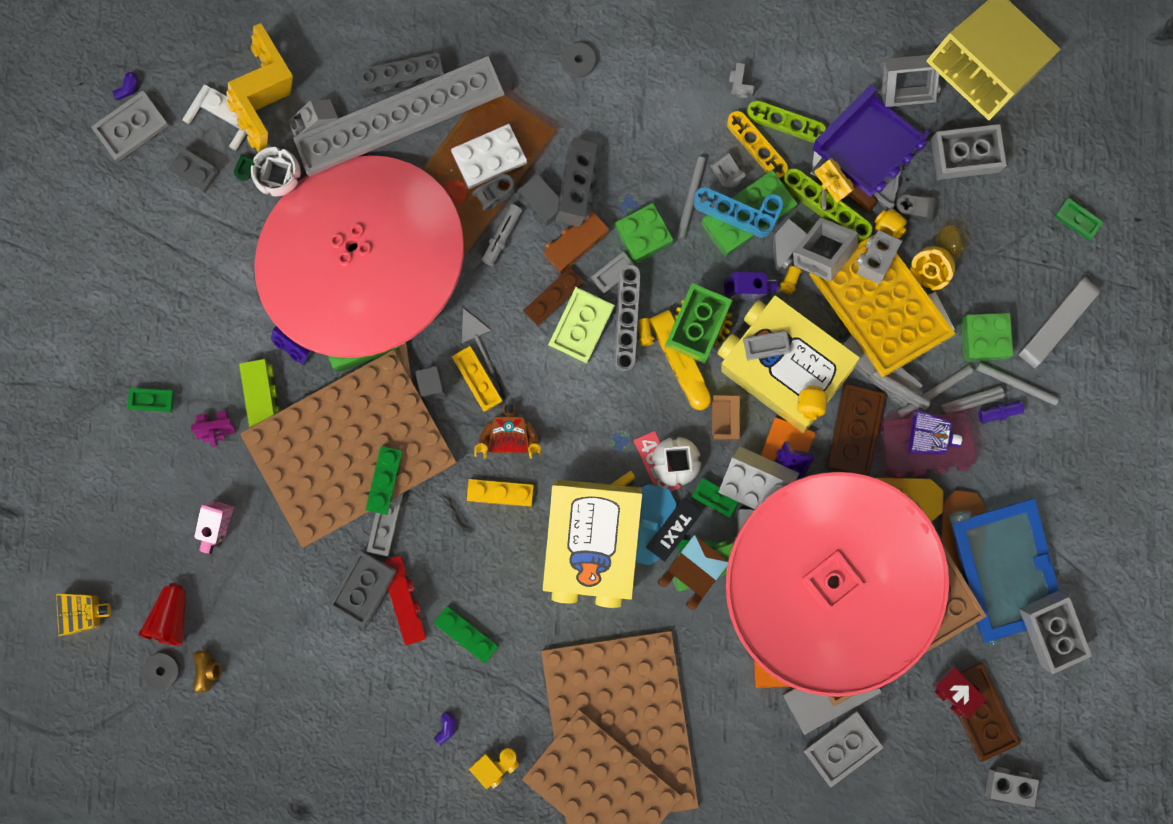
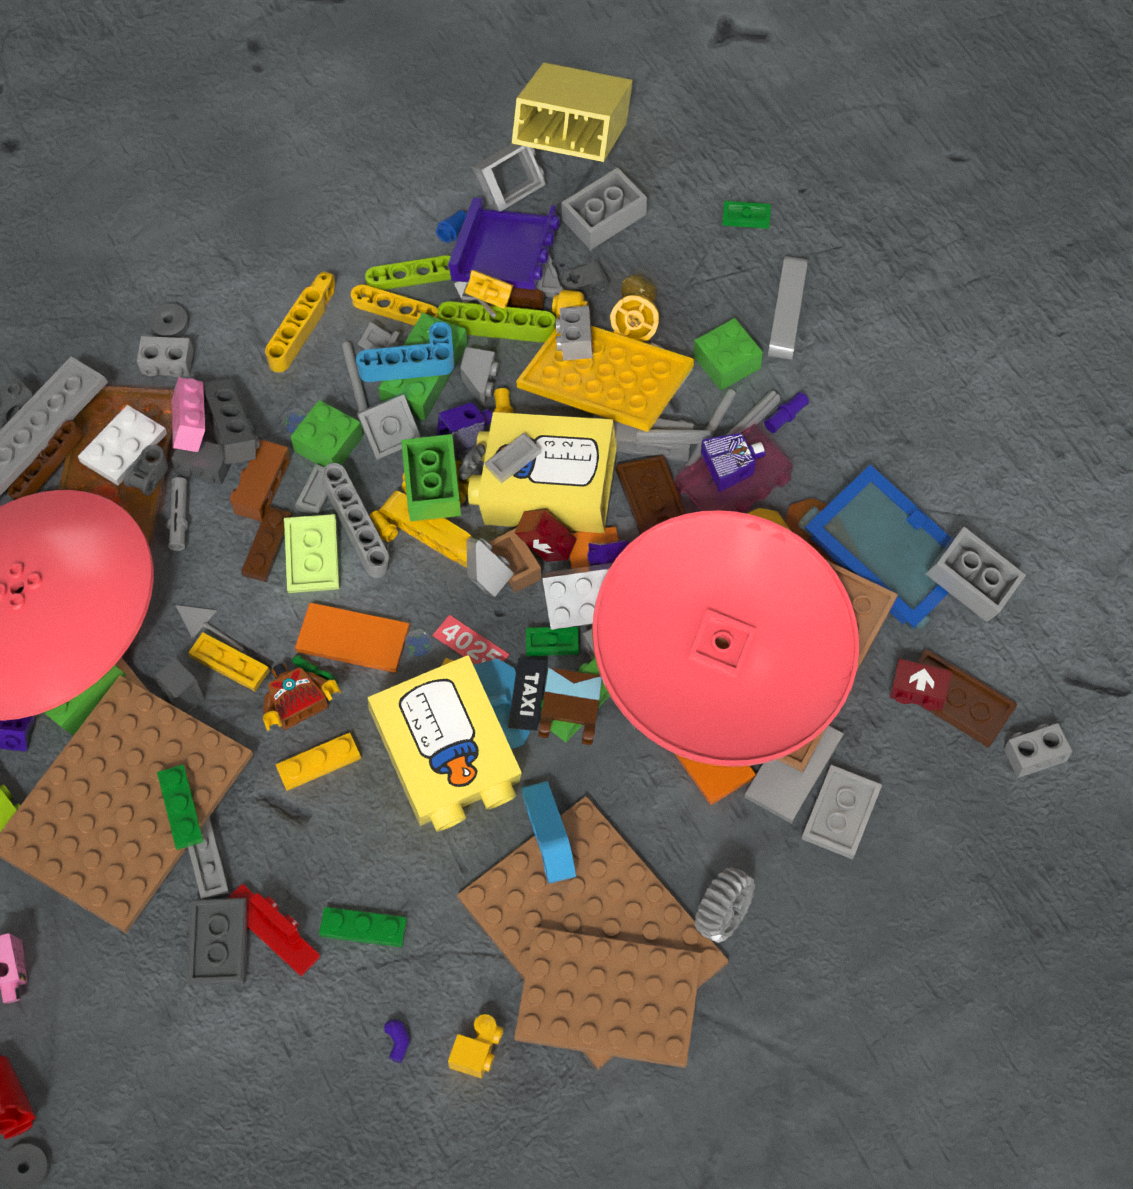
camera: 30 degrees left, 20 degrees down
(205, 671) = (79, 1136): pearl gold piece -> none
(426, 139) = (64, 440): none -> reddish brown beam
(533, 418) = (309, 667): none -> green piece
(548, 161) = (188, 414): none -> bright pink brick
(563, 88) = (165, 352): none -> light grey brick
(575, 409) = (352, 637): none -> orange tile
(628, 645) = (549, 832): none -> dark azure beam
(660, 459) = (494, 640): white piece -> none
(694, 253) = (388, 425): none -> light grey tile
(698, 416) = (485, 568): none -> light grey slope
(707, 99) = (308, 306): none -> yellow piece
(717, 774) = (724, 904): none -> light grey gear
(735, 325) = (471, 461): none -> dark grey gear
(736, 78) = (346, 265): light grey bracket -> none
(757, 416) = (545, 535): none -> dark red brick
(812, 402) = (590, 478): yellow head -> none
(818, 264) = (530, 364): light grey window -> none
(839, 98) = (450, 227): none -> blue cone
(1017, 383) = (785, 381): light grey bar -> none

